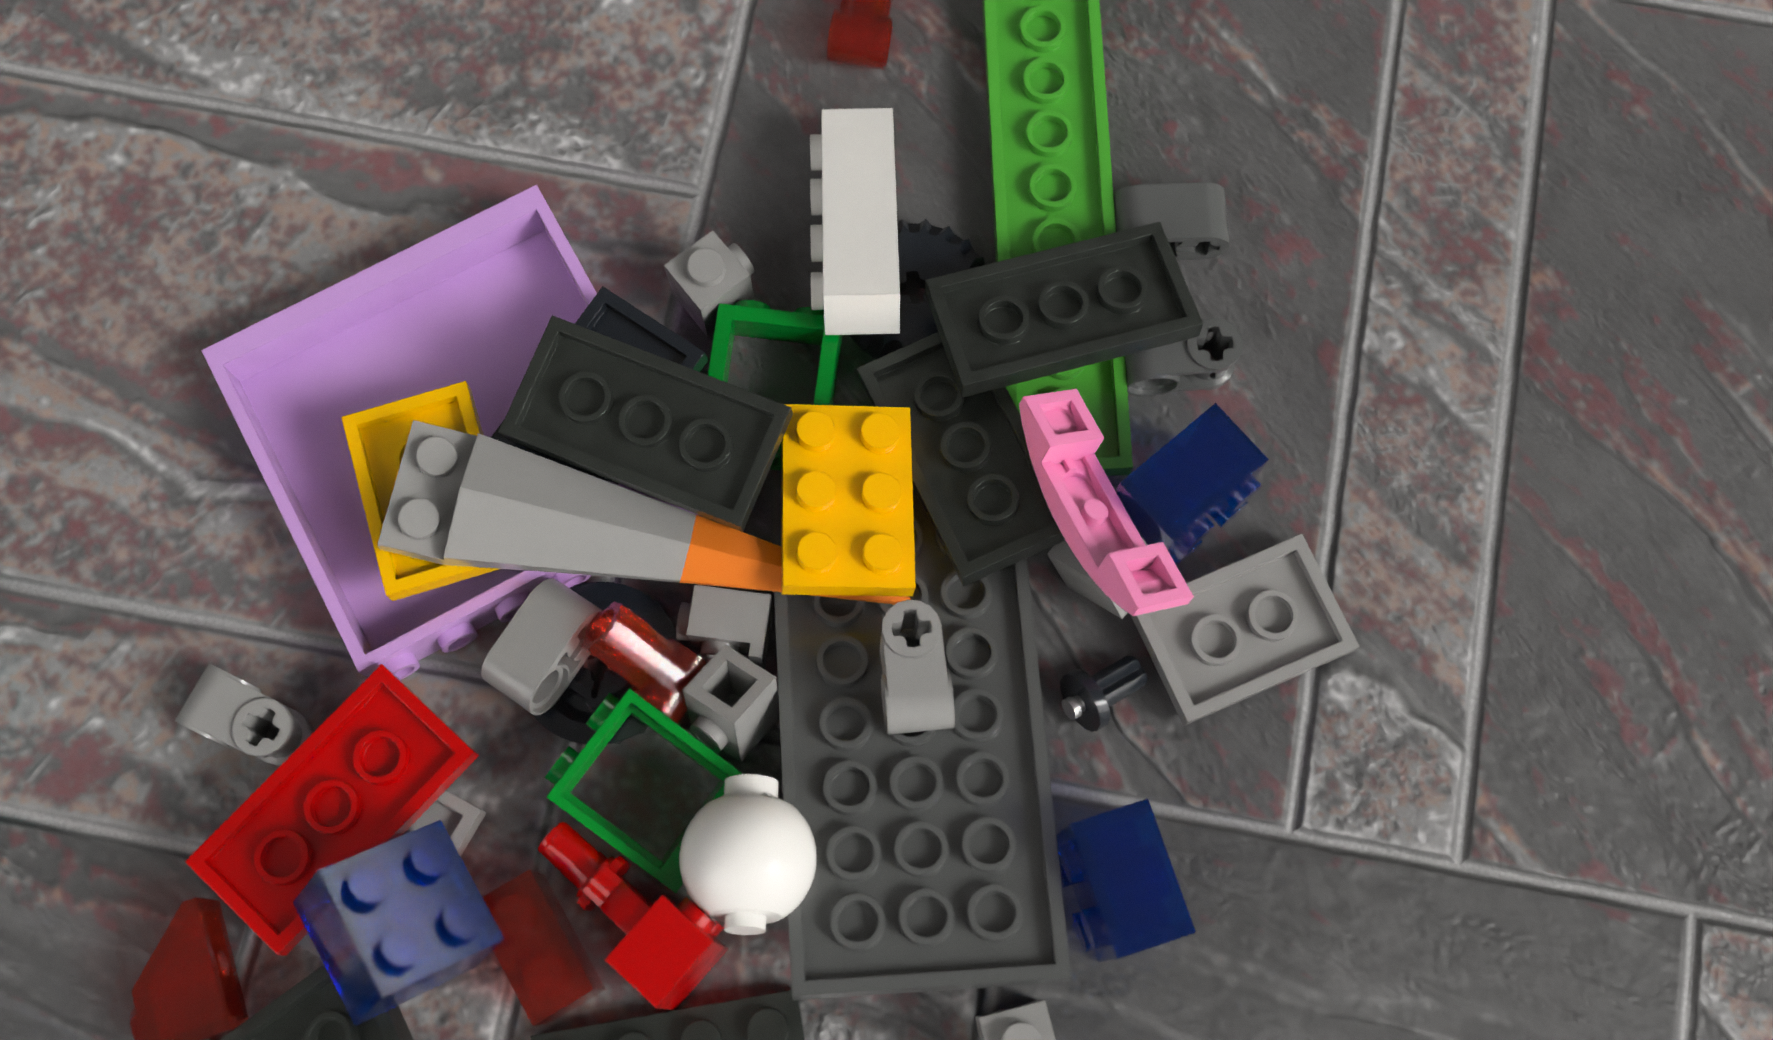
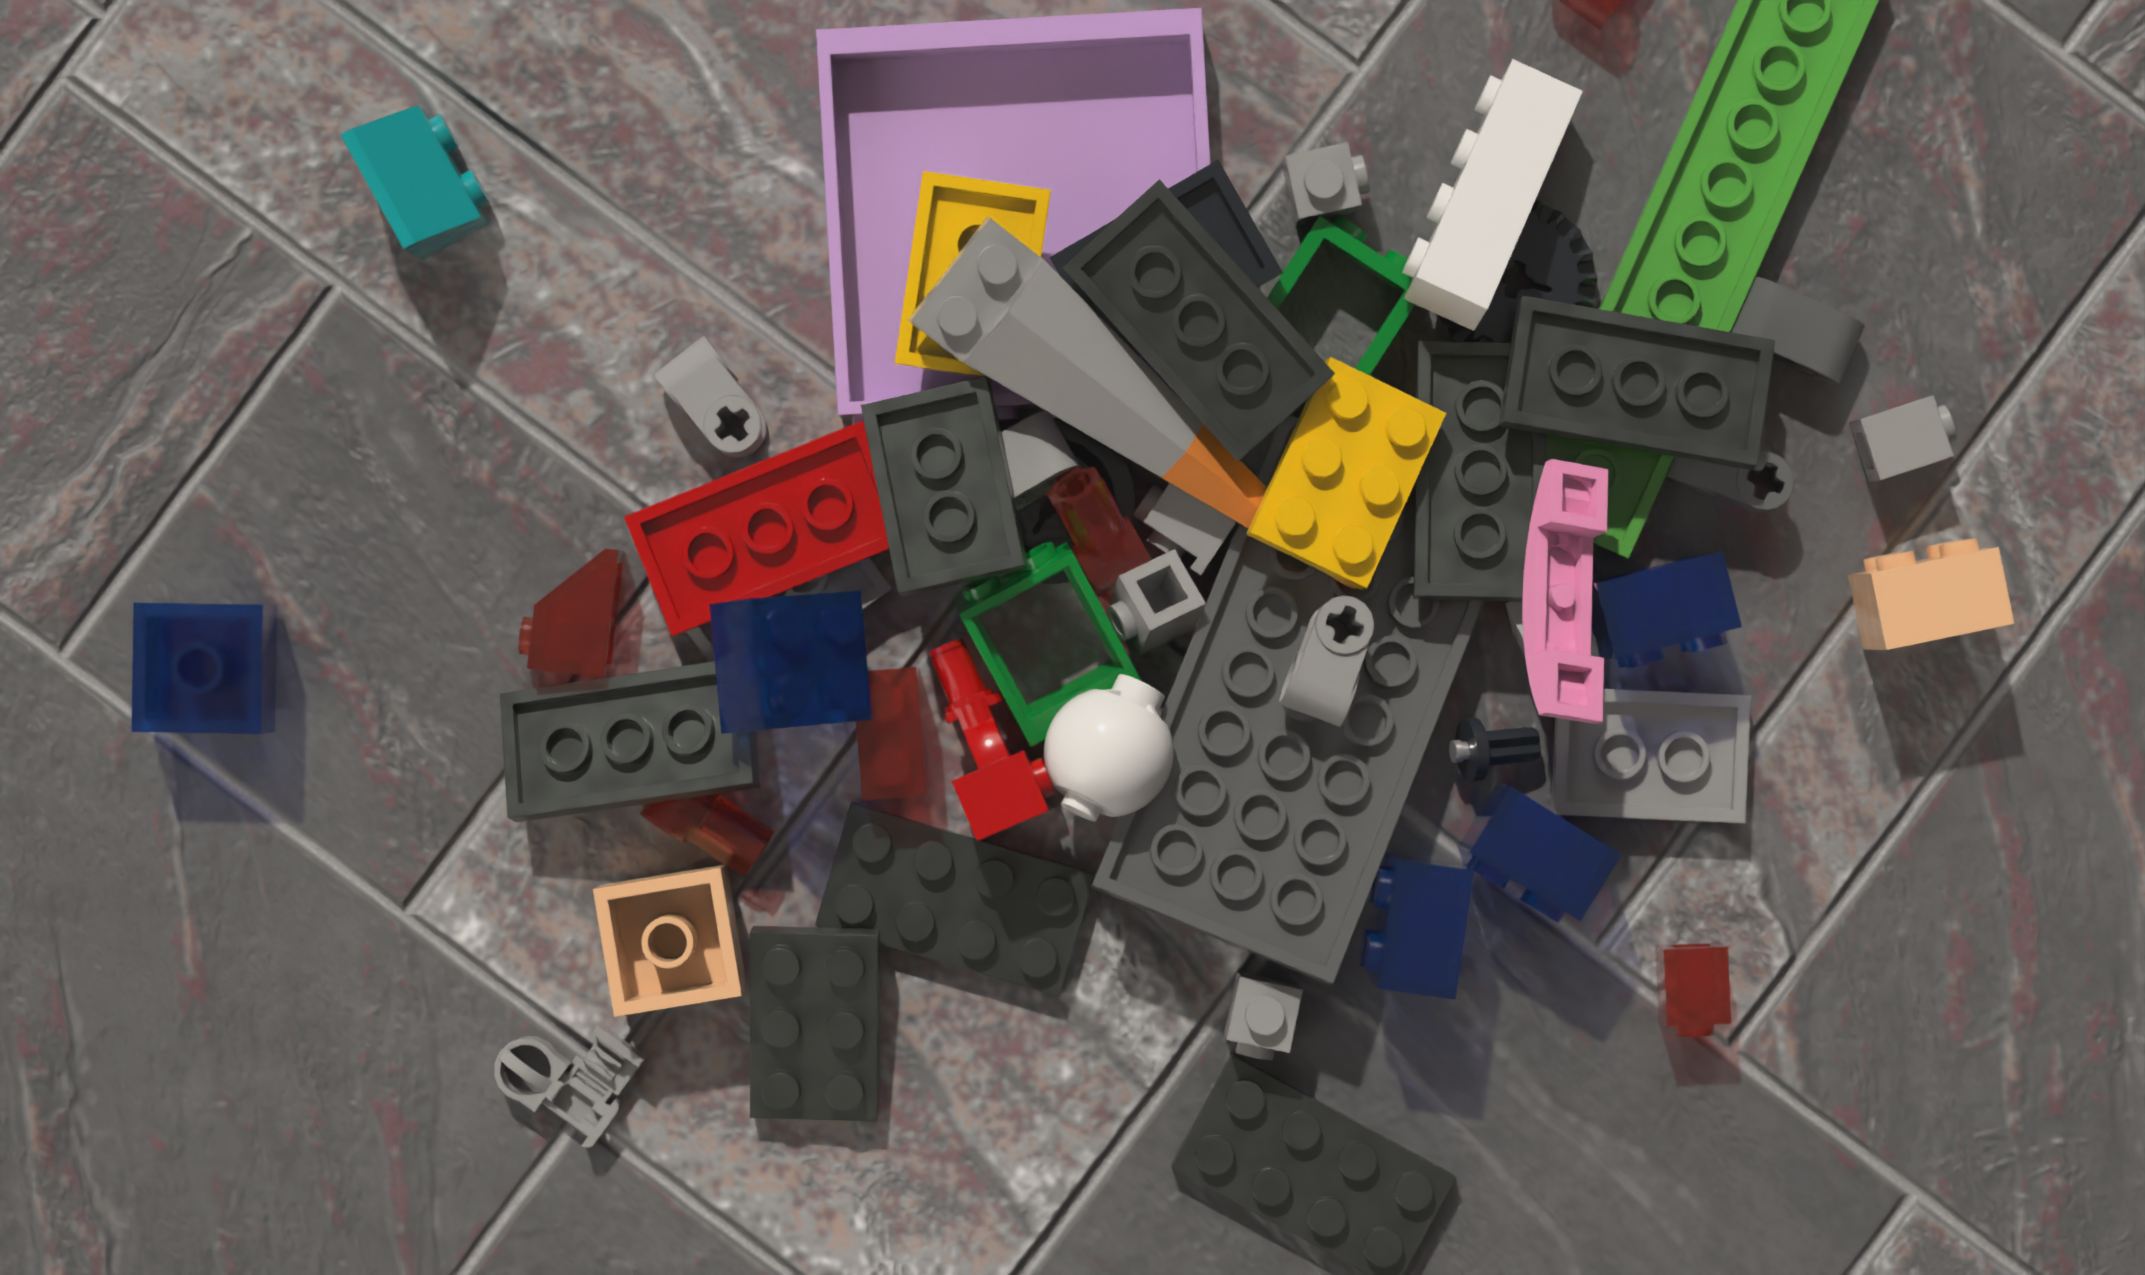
camera: 30 degrees right, 15 degrees up
(479, 685) = (944, 486): none -> pearl dark grey plate
(1196, 759) = (1538, 851): none -> clear blue brick
(1306, 264) = (1904, 438): none -> light grey brick
(1397, 819) = (1693, 987): none -> clear red brick
(1408, 369) = (1932, 598): none -> light nougat brick

